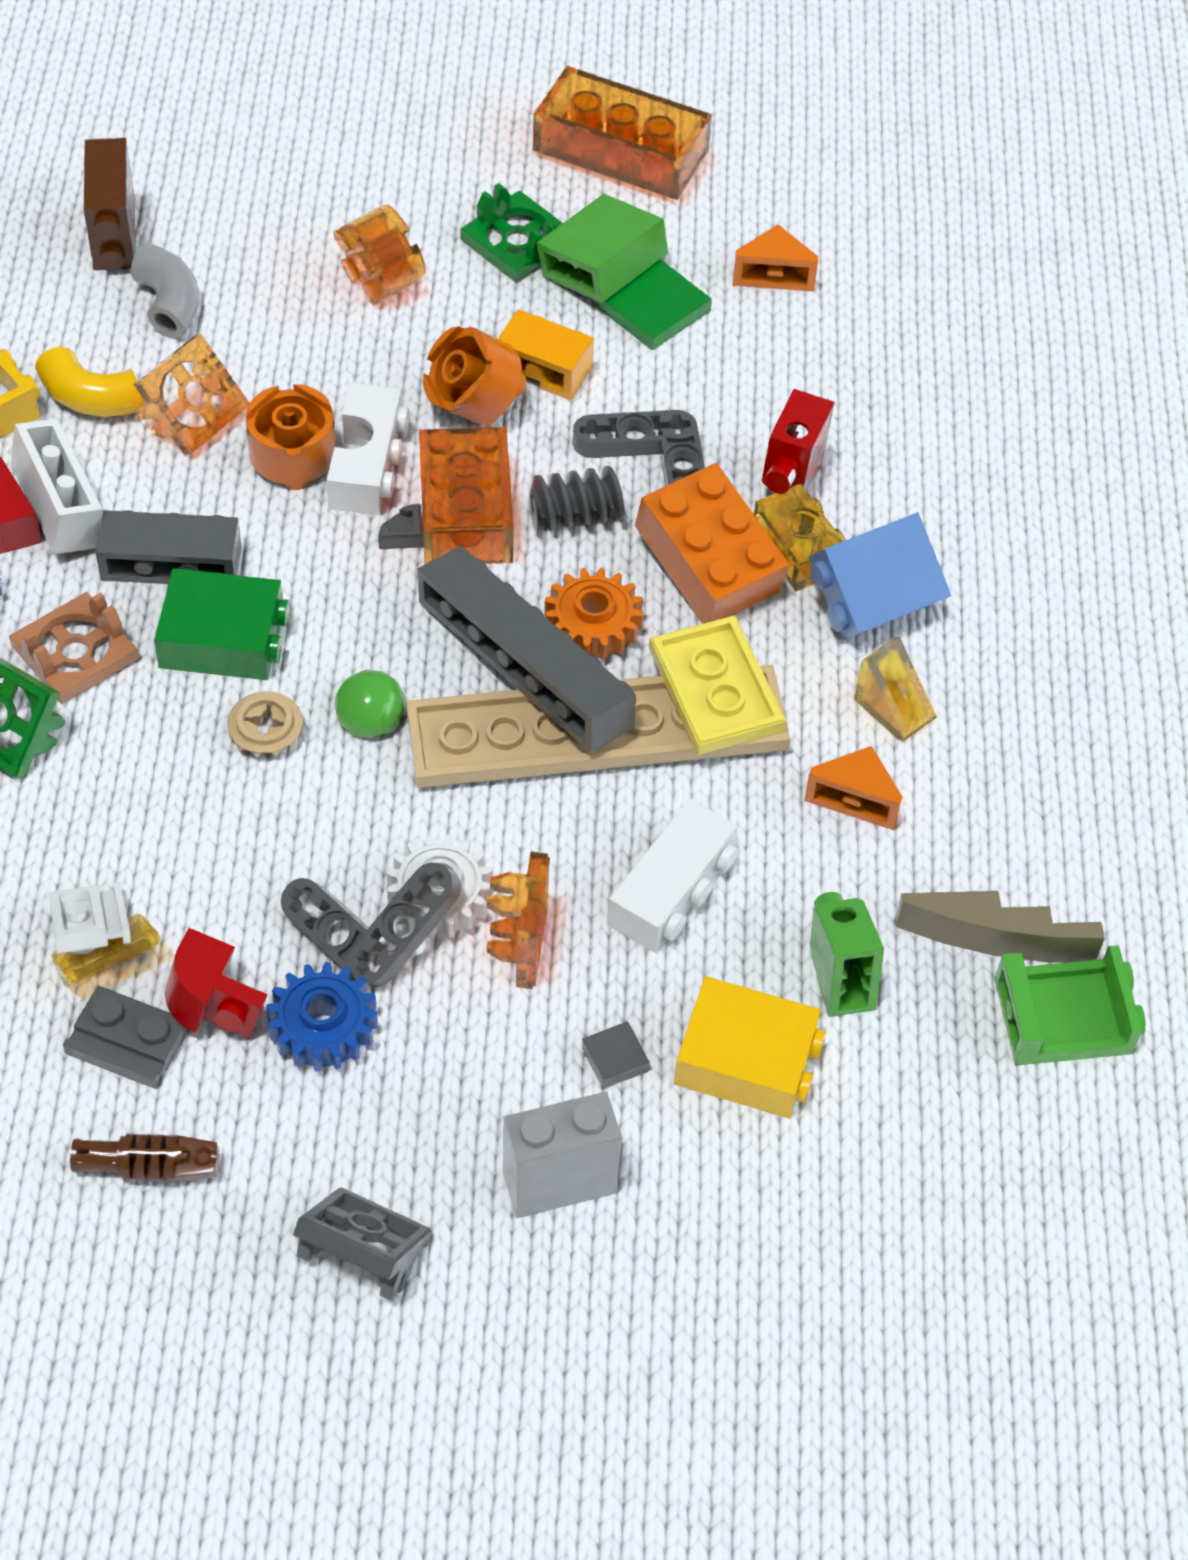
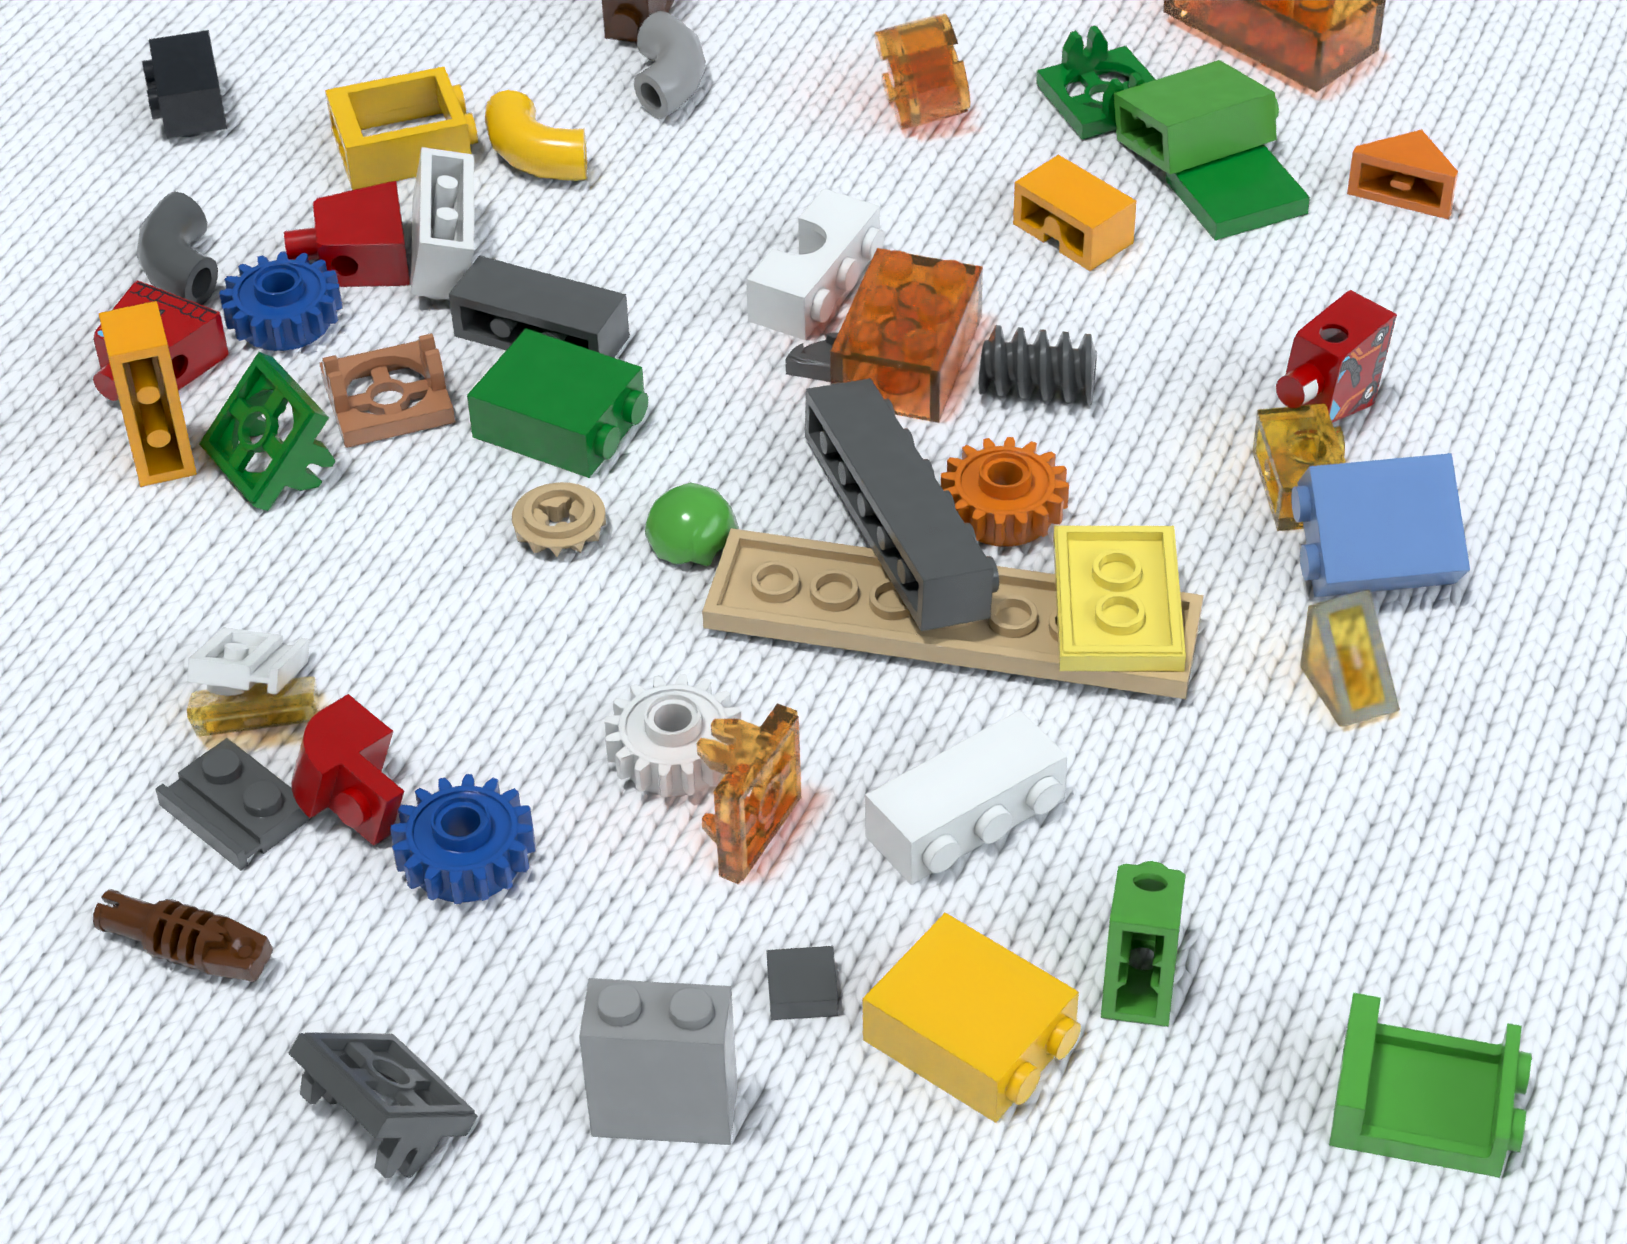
camera: 25 degrees right, 10 degrees down
(216, 382) = (670, 151): clear orange piece -> none
(290, 435) = (729, 227): orange brick -> none
(365, 939) = (556, 766): dark grey beam -> none
(473, 375) = (971, 207): orange brick -> none
(667, 443) = (1198, 335): dark grey beam -> none
(711, 544) = (1182, 445): orange brick -> none
(856, 787) = (1248, 757): orange slope -> none
(980, 924) = (1345, 957): dark tan slope -> none

